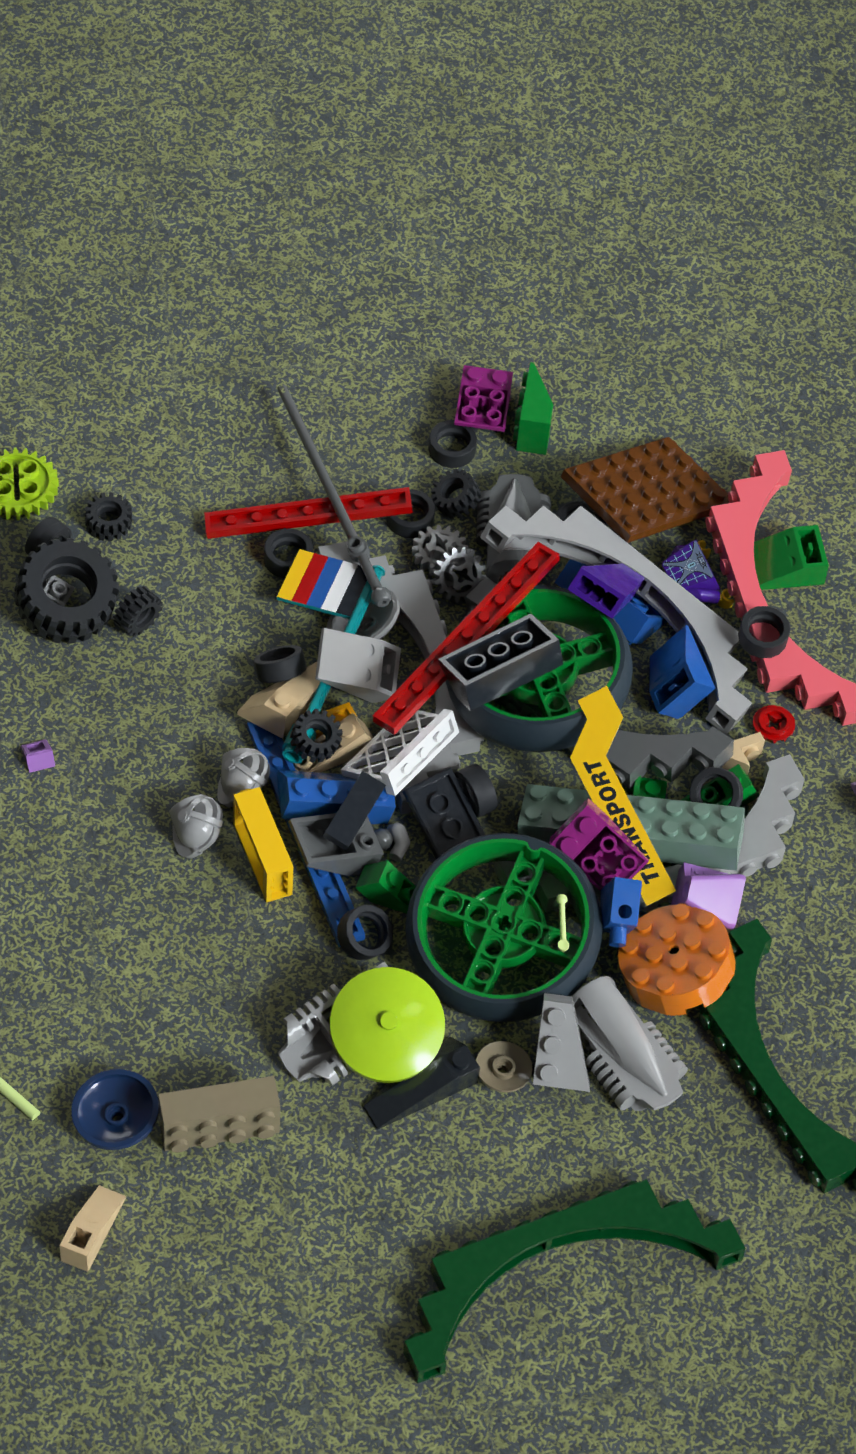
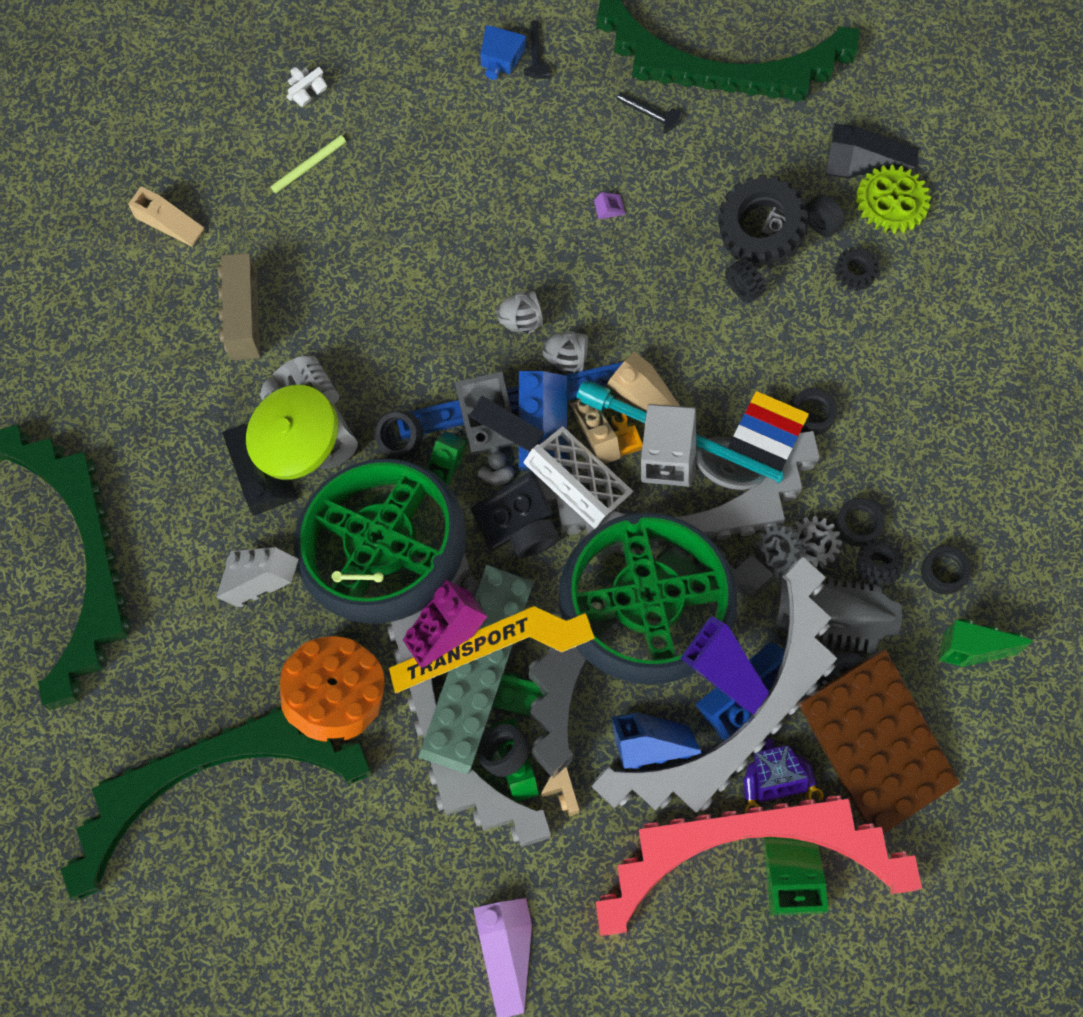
camera: 100 degrees right, 15 degrees up
(112, 1095) = (259, 226): dark blue dish -> none
(263, 844) = (501, 353): yellow window -> none
(280, 664) = (690, 382): black tyre -> none
(306, 513) = (855, 430): red plate -> none
(322, 723) = (596, 414): black tyre -> none
(357, 547) = (802, 457): dark grey bar -> none
(477, 624) = (672, 527): red plate -> none
(484, 398) = (995, 600): magenta slope -> none
(501, 661) = (631, 546): black slope -> none
(507, 1057) = (253, 522): dark tan dish -> none
(620, 908) = (374, 634): blue torso -> none
(624, 1051) = (255, 638): light grey connector -> none
(710, 891) = (395, 726): piece -> none
(759, 648) = (706, 819): black tyre -> none
(776, 715) = (605, 821): red gear -> none

